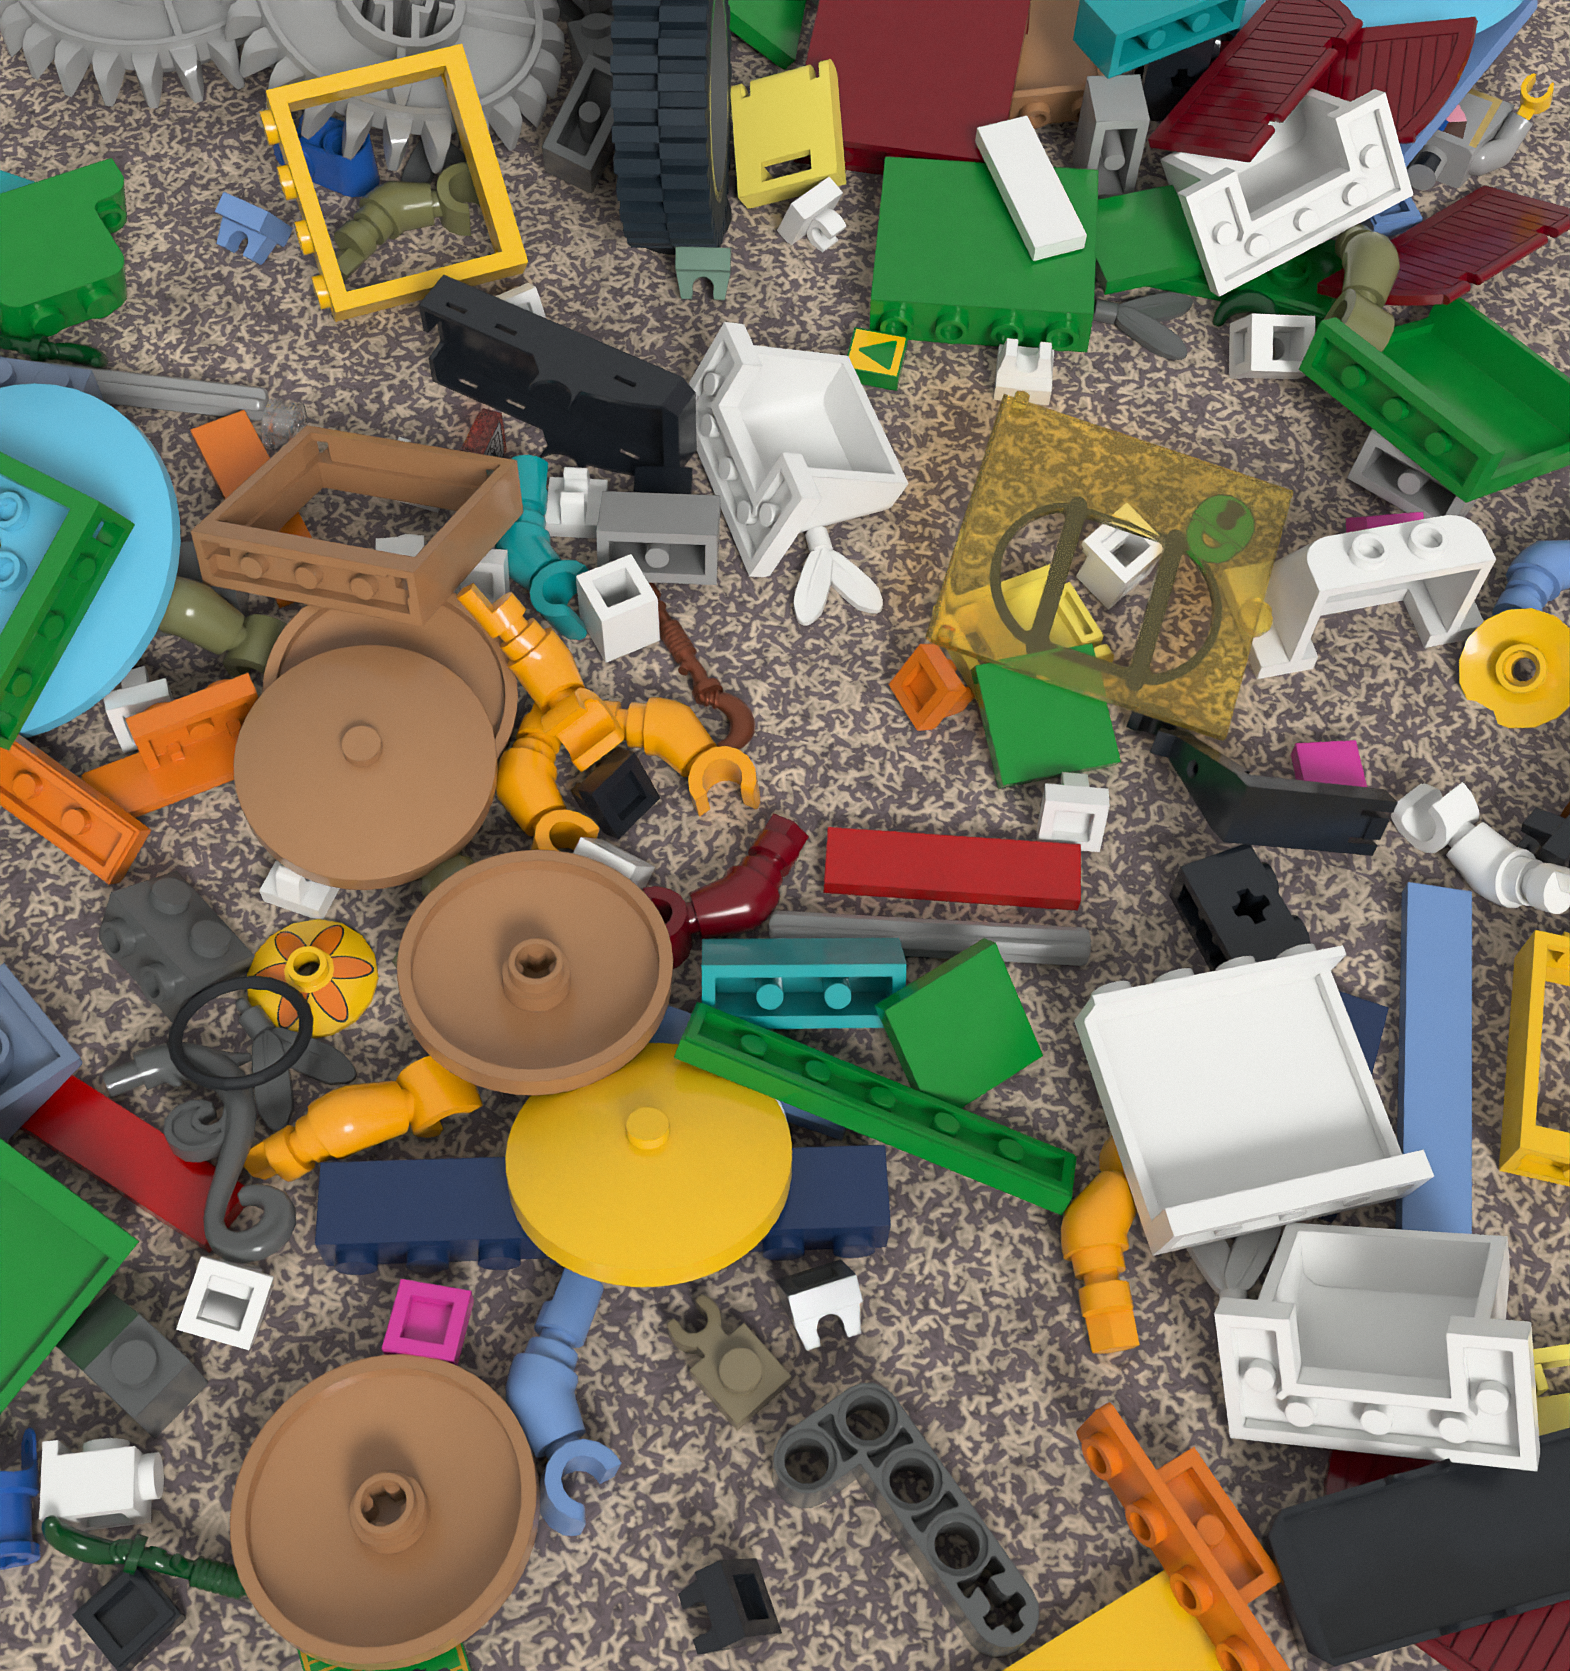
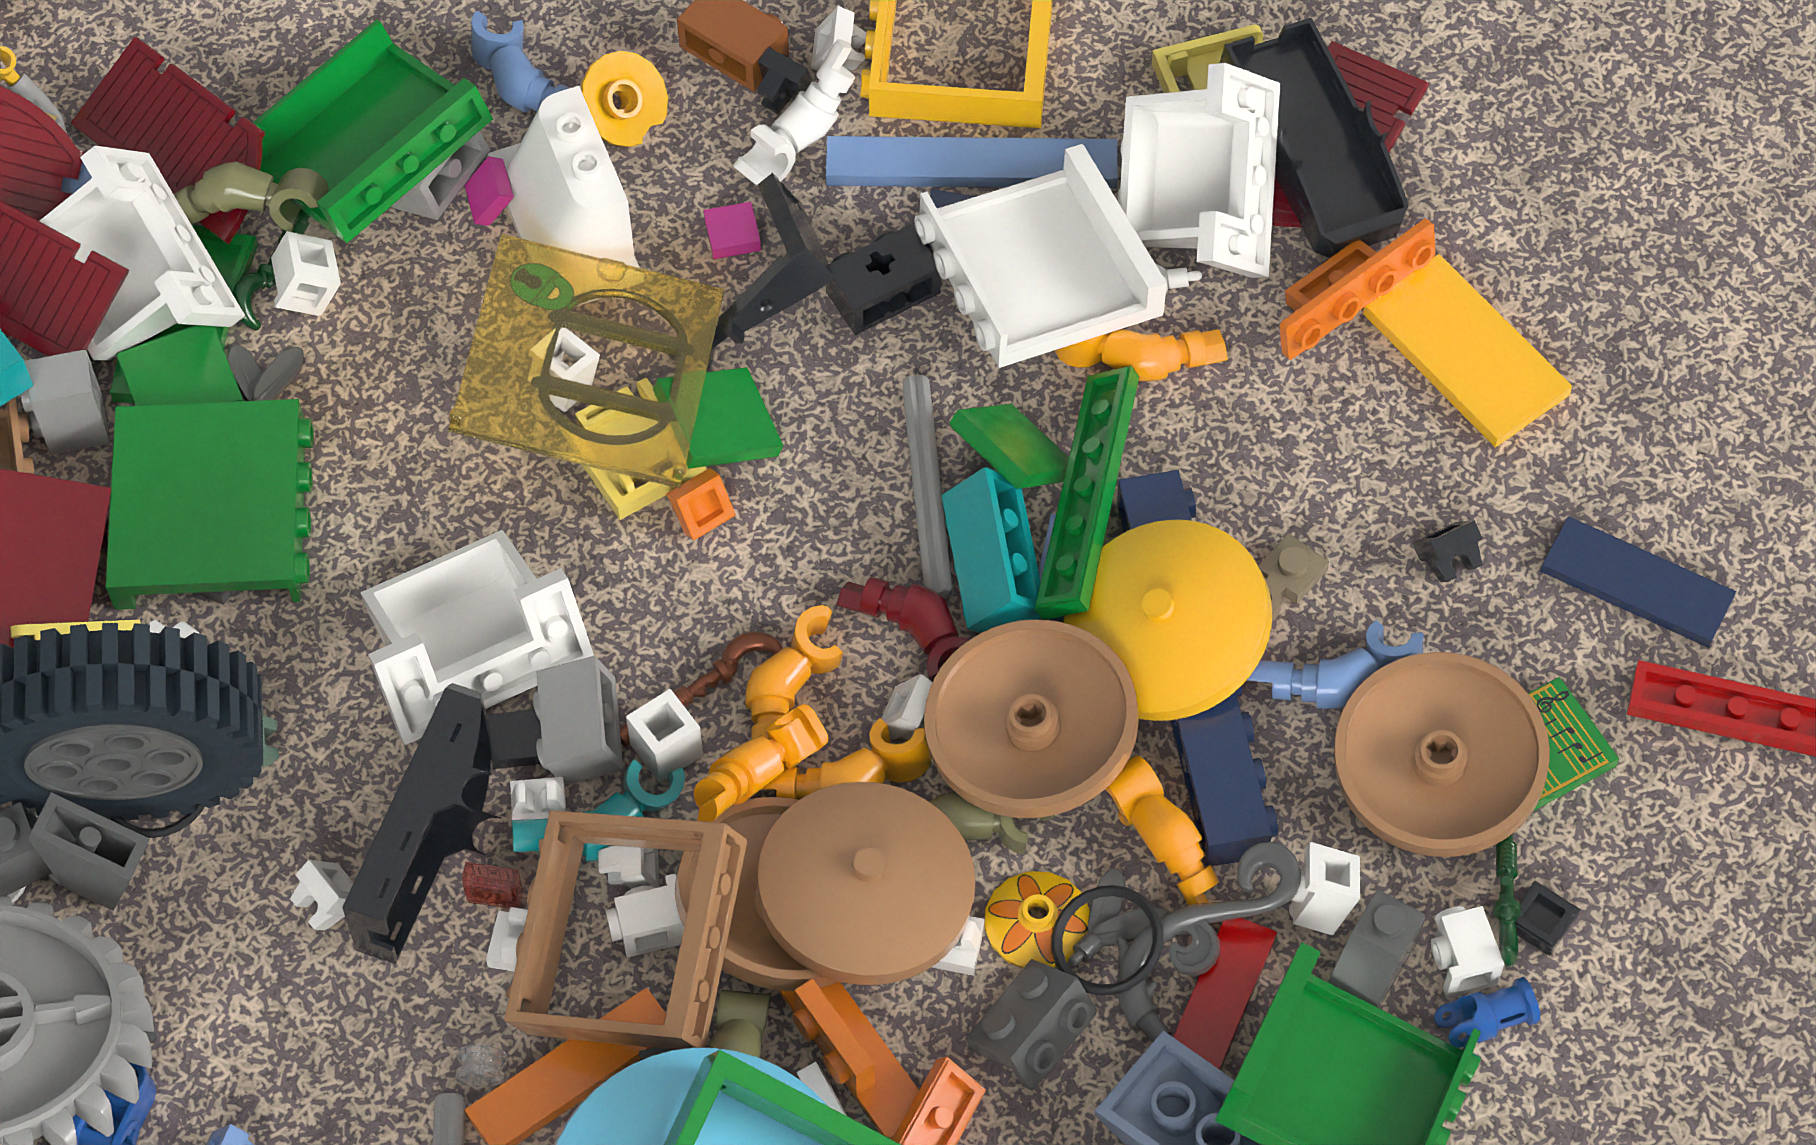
camera: 95 degrees left, 0 degrees up
(402, 208) = (190, 1029): olive piece -> none
(428, 1321) = (1308, 757): dark pink tile -> none
(478, 150) = (248, 908): yellow window -> none
(616, 793) = (843, 718): black tile -> none
(821, 1292) = (1232, 514): tile -> none
(826, 569) = (597, 606): white piece -> none
(878, 357) = (334, 588): tile -> none
(917, 1524) = (1372, 442): dark grey beam -> none
(953, 868) = (861, 478): red tile -> none
(1024, 370) = (340, 467): white tile -> none
(1030, 188) = (155, 453): white tile -> none
(1073, 812) = (803, 393): white tile -> none

